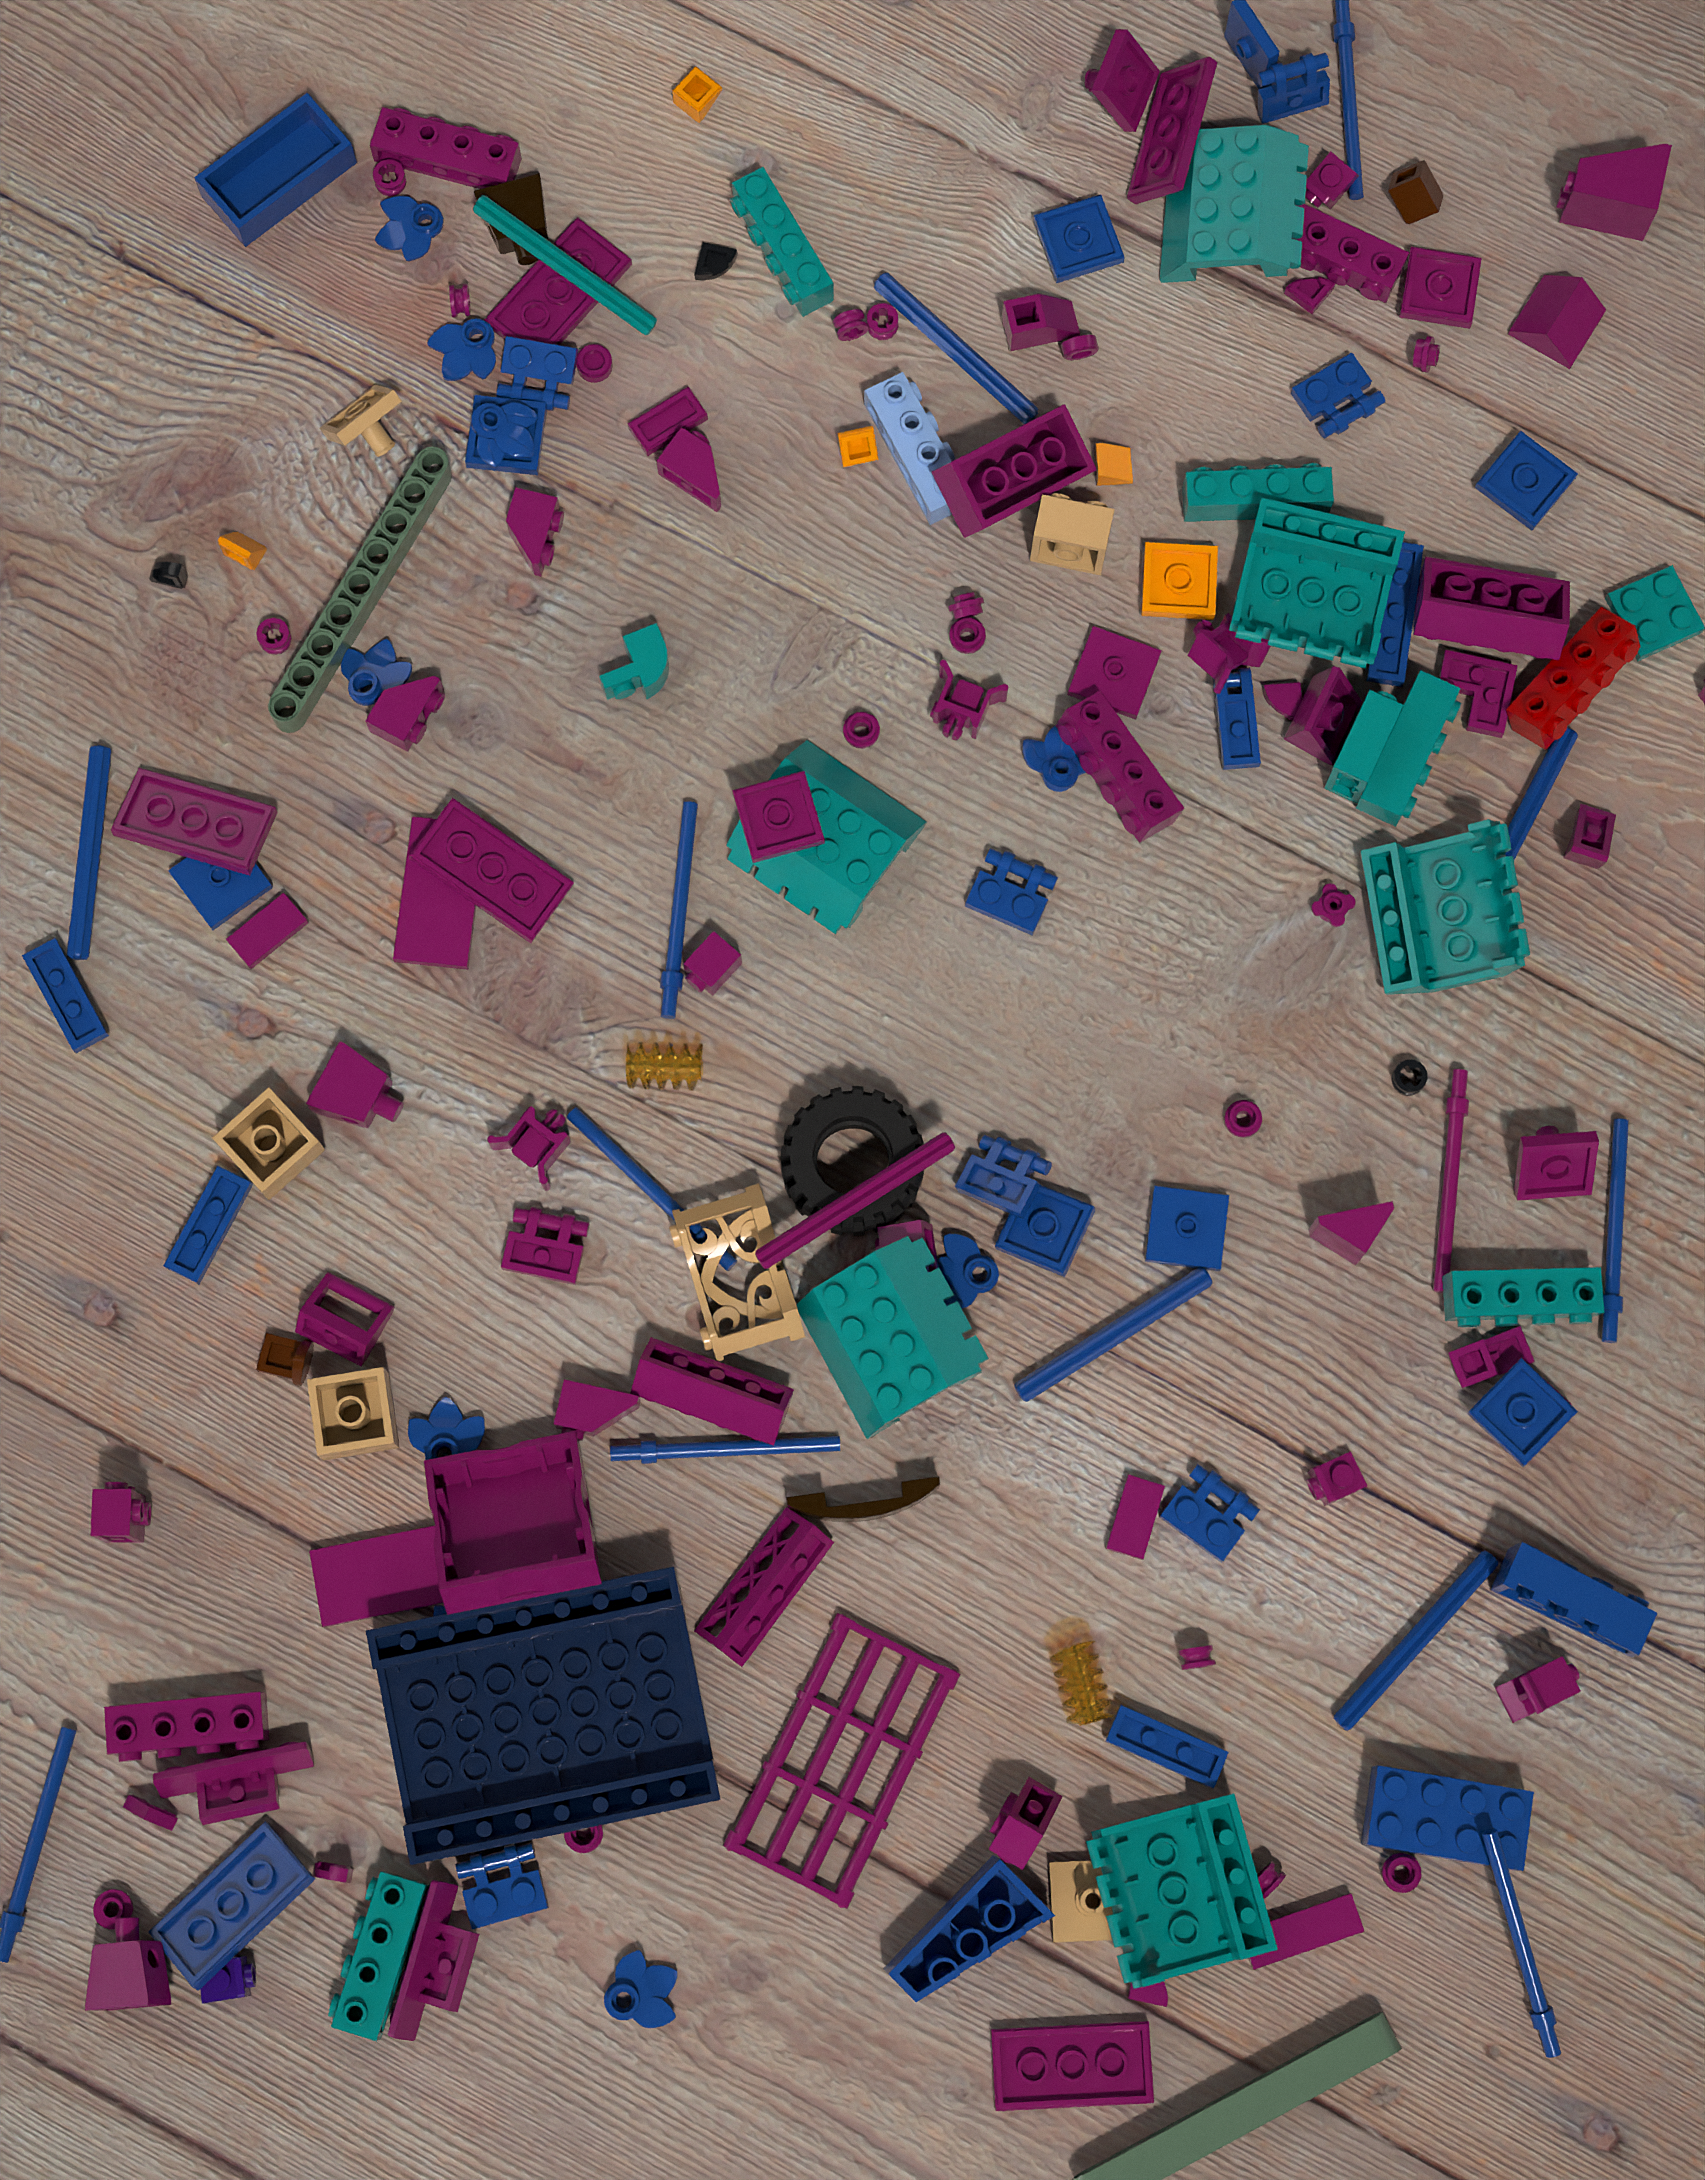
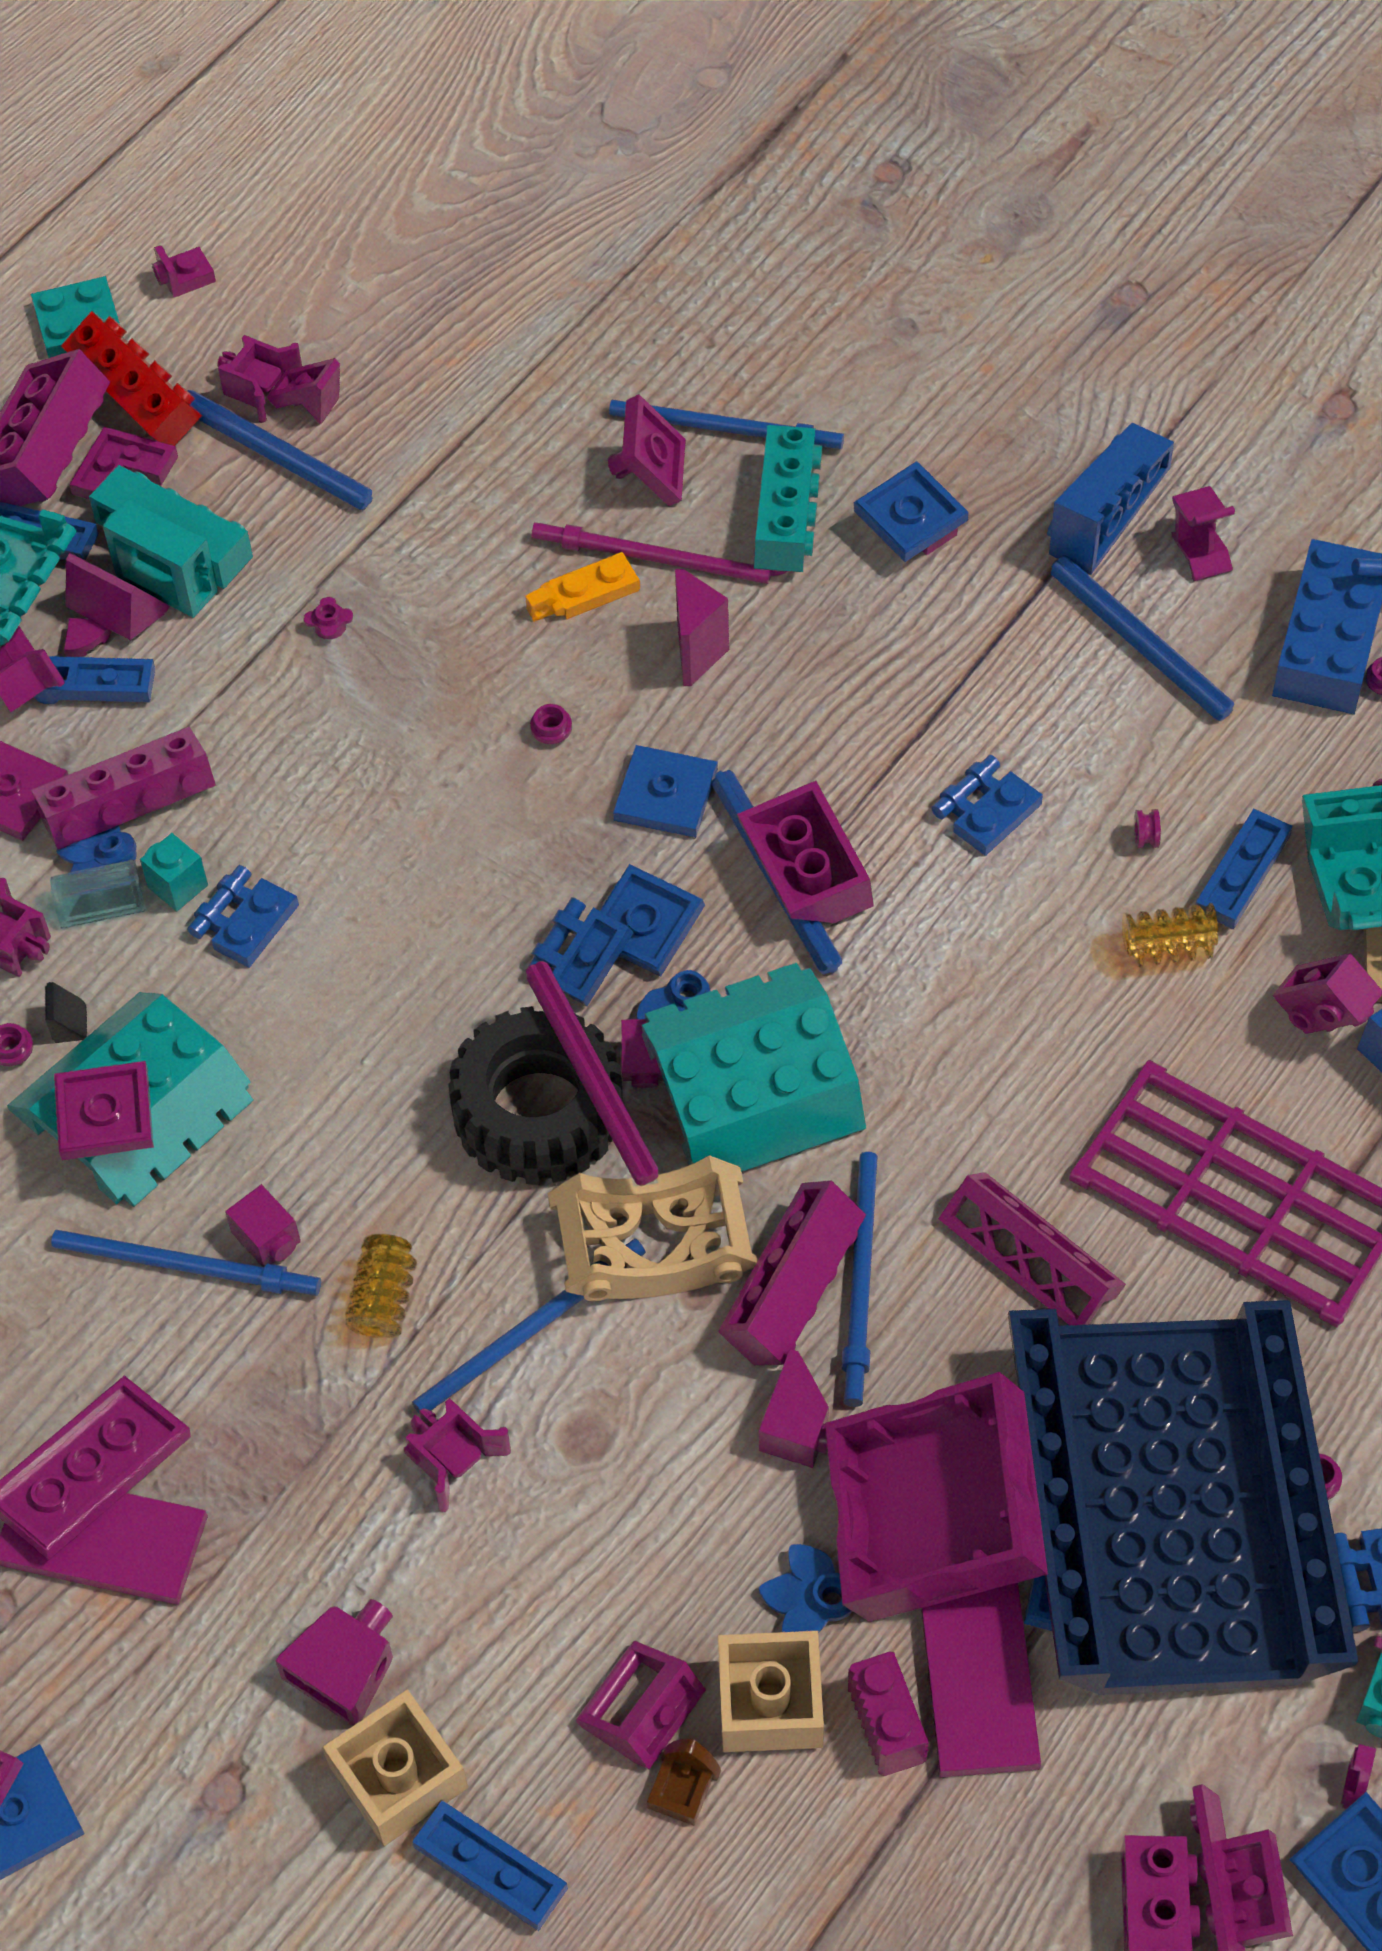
camera: 80 degrees left, 20 degrees down
(267, 931) = (102, 1758): magenta tile -> none
(347, 1505) = (887, 1713): none -> magenta brick
(544, 1256) = (596, 1455): magenta plate -> none
(894, 767) = (64, 1014): none -> black slope
(912, 1493) = (941, 1087): dark brown slope -> none
(1014, 767) = (97, 894): none -> clear light blue slope
(1040, 824) = (173, 871): none -> teal brick
(1117, 1357) = (808, 856): none -> magenta slope
(1135, 1517) = (985, 873): magenta tile -> none
(1335, 1479) = (962, 687): magenta bracket -> none
(1401, 1126) = (584, 589): none -> light orange hinge
(1410, 1066) = (530, 564): black bush -> none
(1446, 910) = (359, 501): teal slope -> none
(1490, 1357) = (845, 539): magenta slope -> none
(1605, 787) = (255, 371): none -> magenta piece

